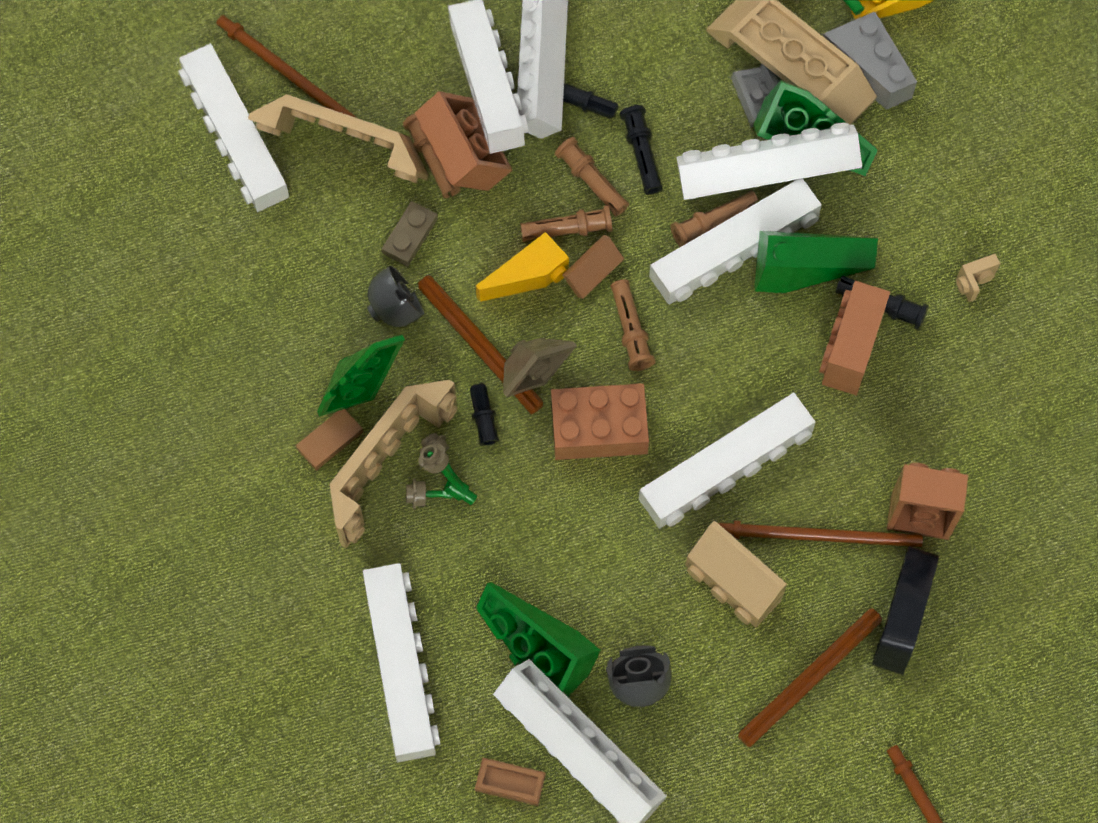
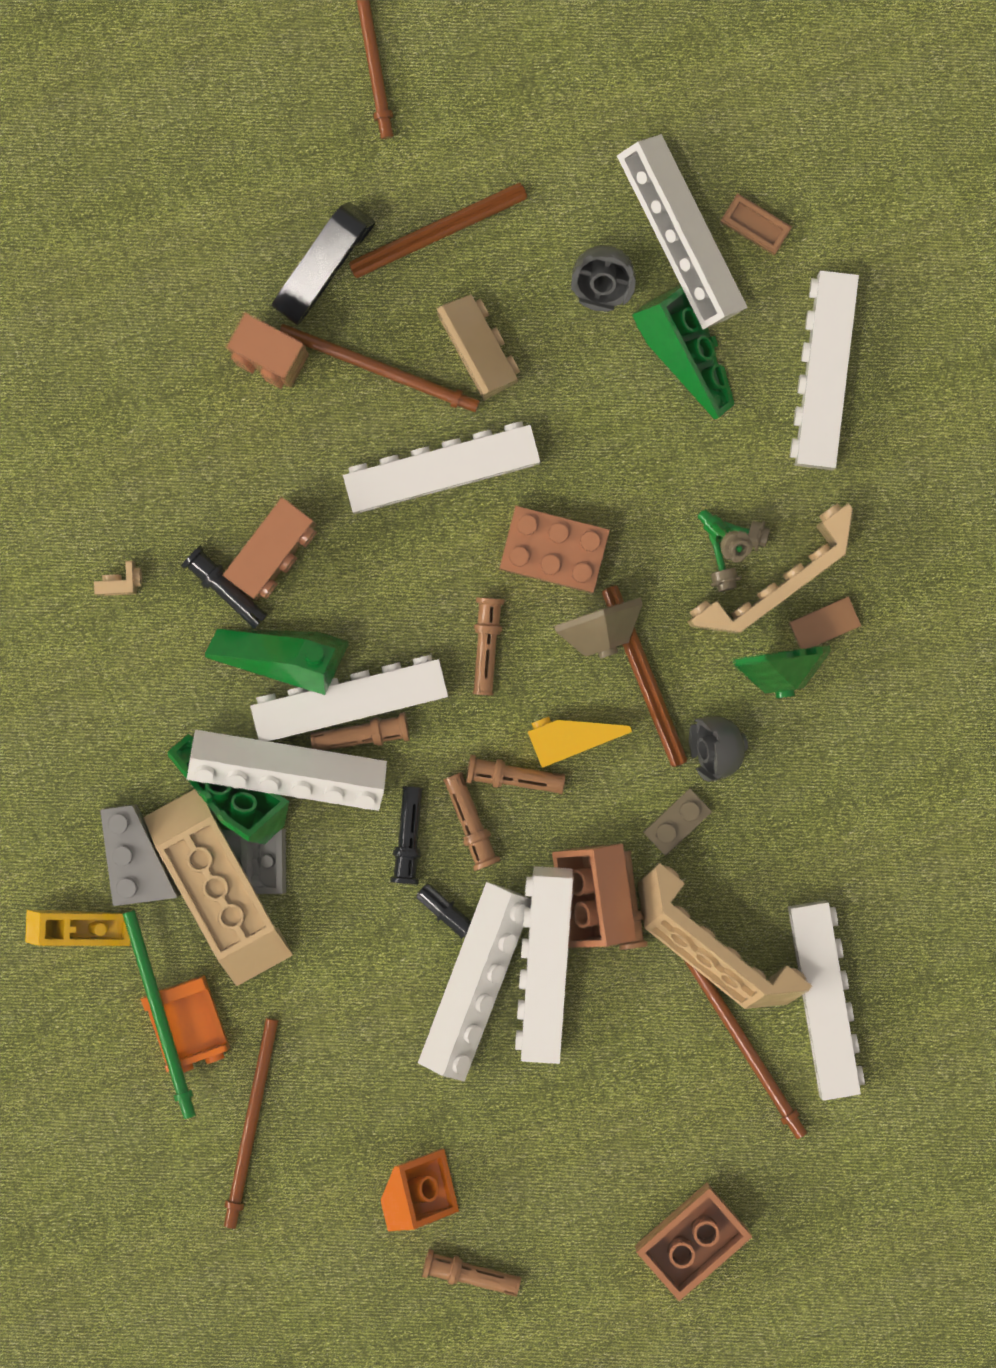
camera: 160 degrees left, 20 degrees up
(483, 415) = (665, 597): black axle -> none
(593, 266) = (503, 720): medium nougat tile -> none

